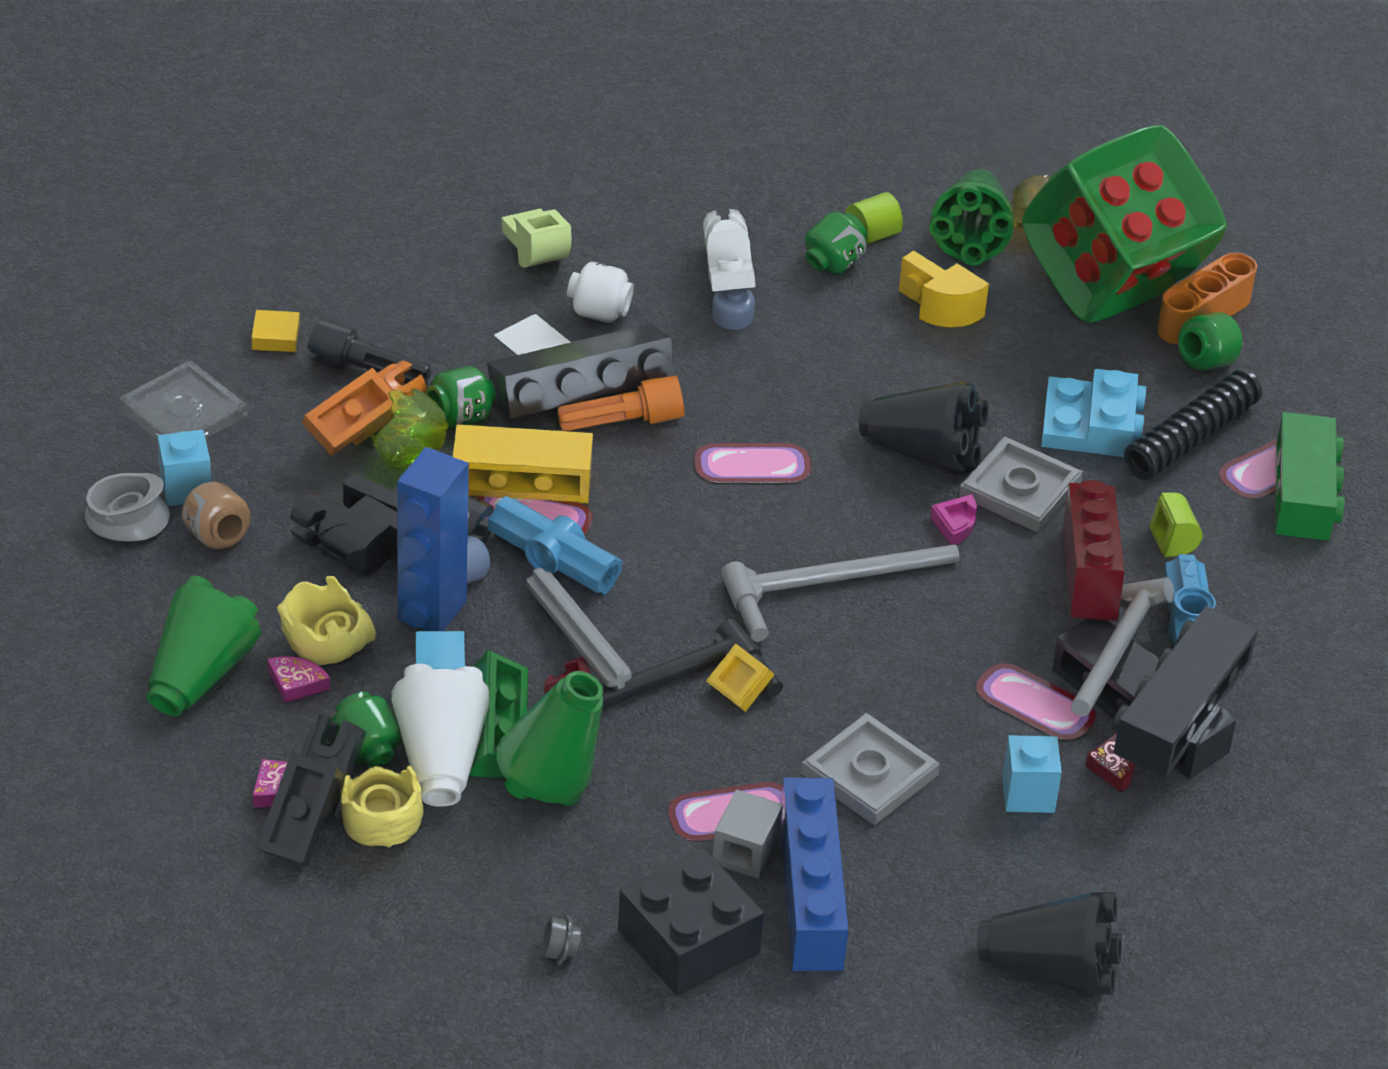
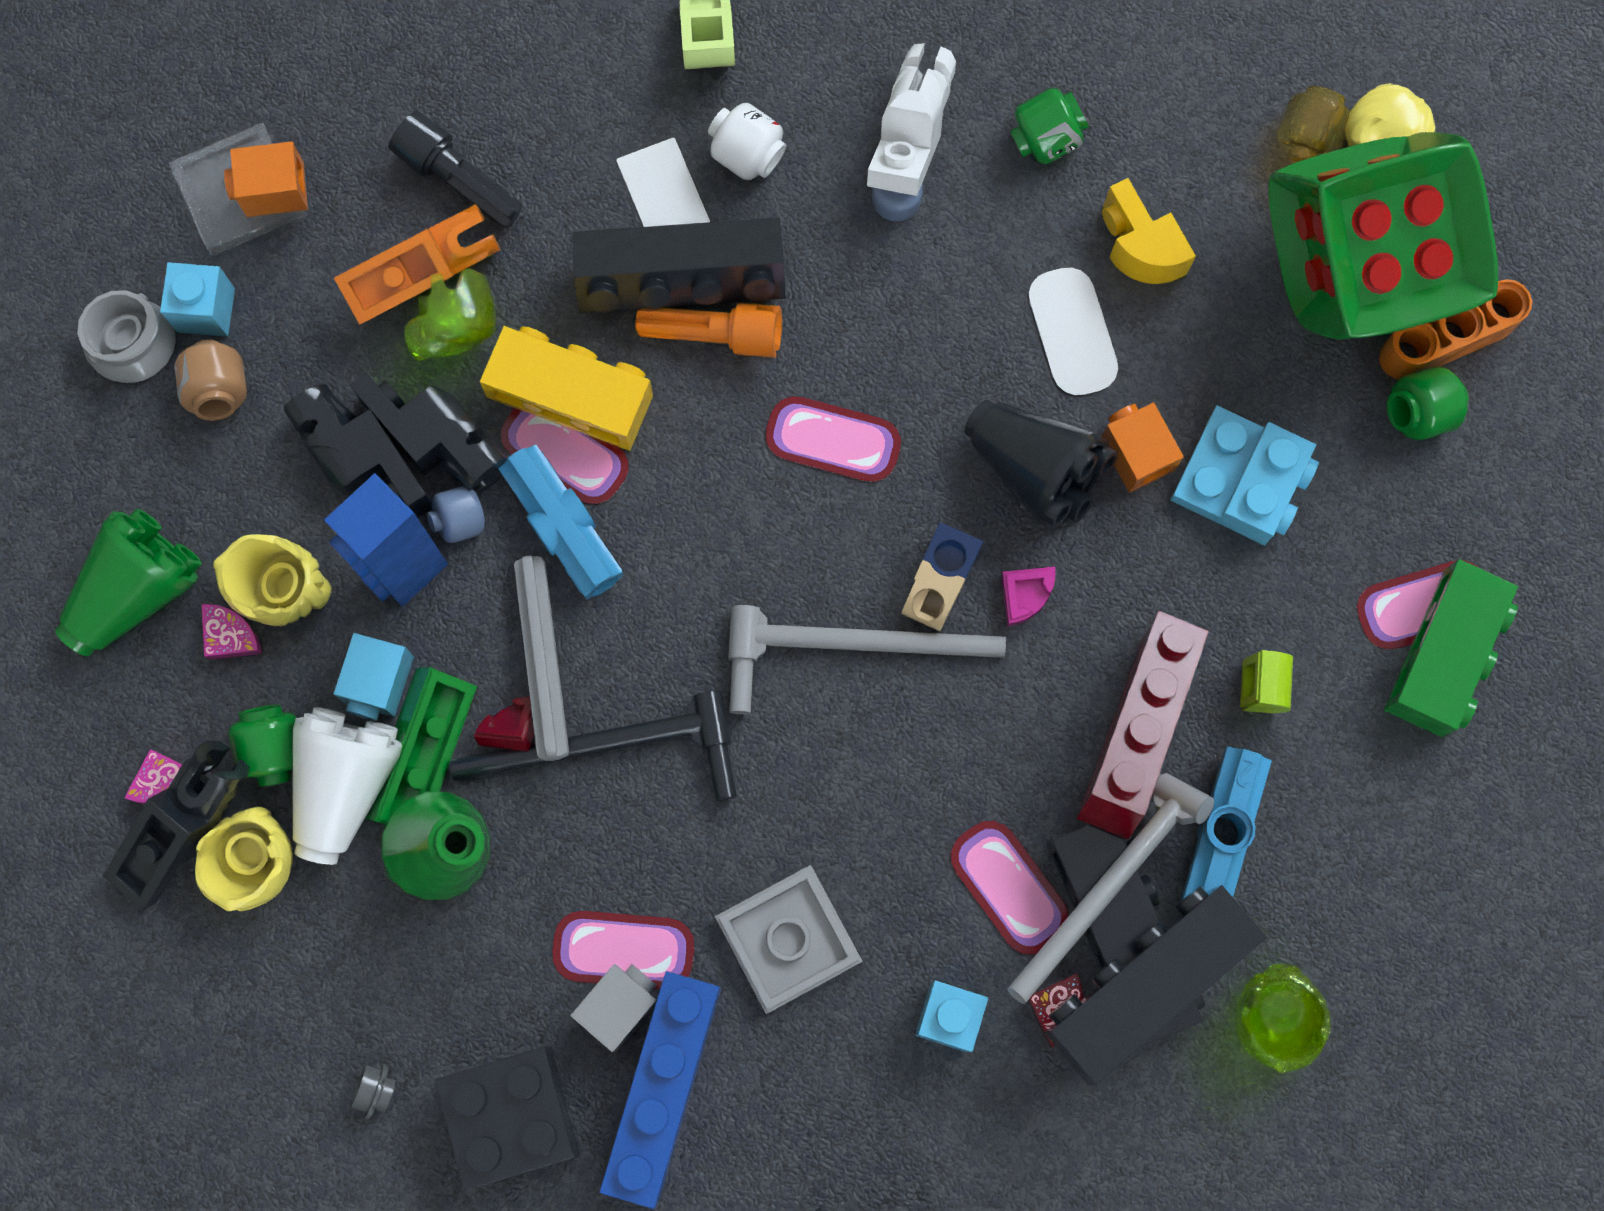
camera: 20 degrees right, 35 degrees up
(217, 378) = (267, 179): none -> orange brick
(275, 331) = (373, 96): yellow tile -> none
(463, 395) = (533, 267): green head -> none
(740, 677) = (692, 776): yellow tile -> none
(879, 216) = (1115, 88): lime brick -> none
(884, 512) = (941, 576): none -> leg
(909, 360) = (1073, 331): none -> white sticker
(973, 218) = (1229, 125): green cone -> none
(1011, 407) = (1142, 444): none -> orange brick
(1020, 484) = (1120, 560): light grey tile -> none
(1193, 424) = (1355, 528): black piece -> none
(1299, 717) = (1282, 1019): none -> clear neon green hair

